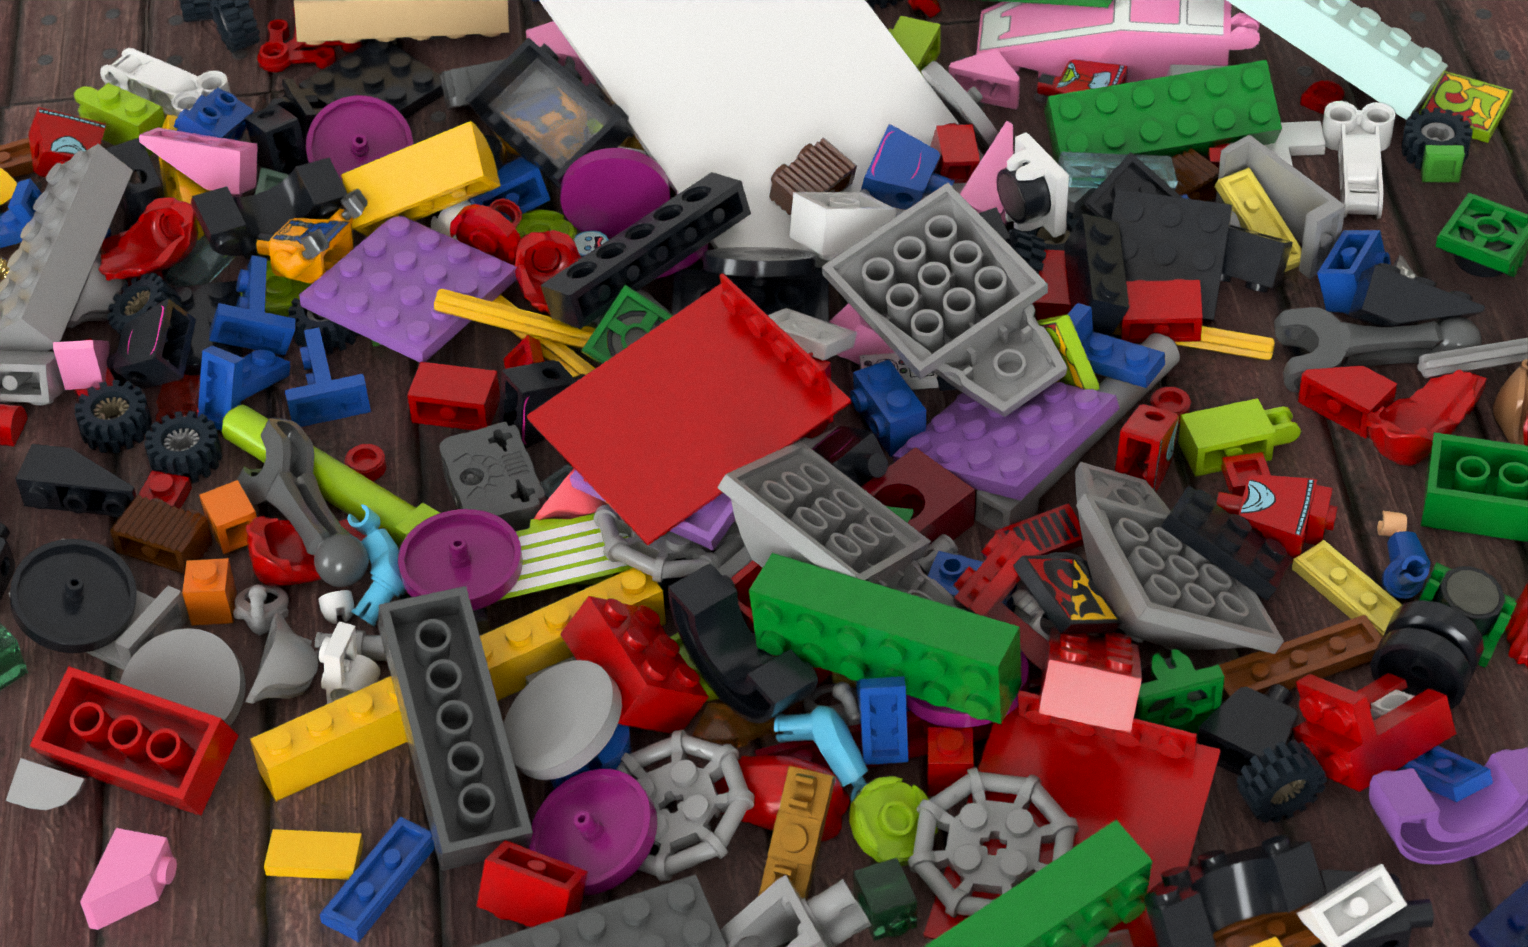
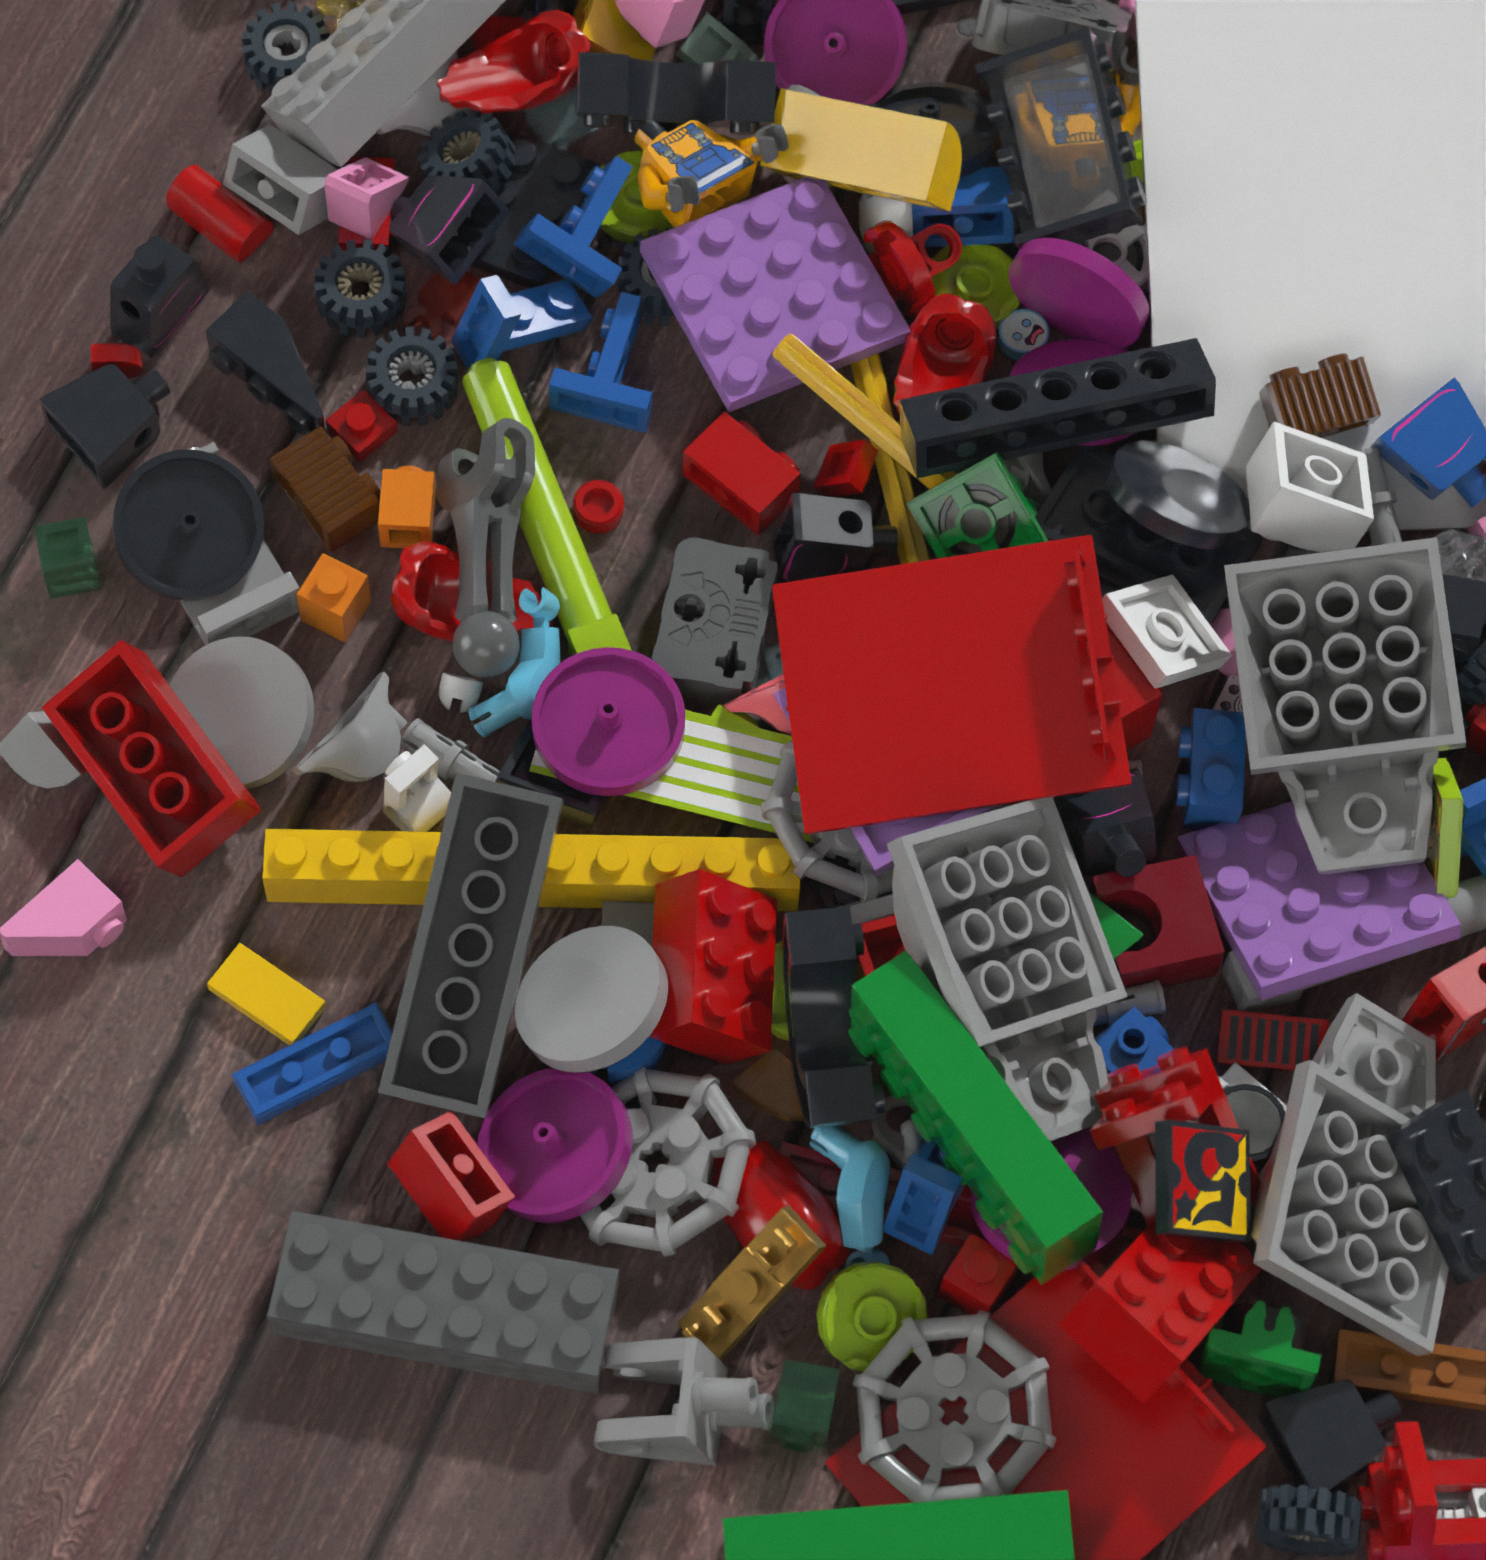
camera: 25 degrees right, 20 degrees up
(256, 613) = (368, 645): light grey piece -> none

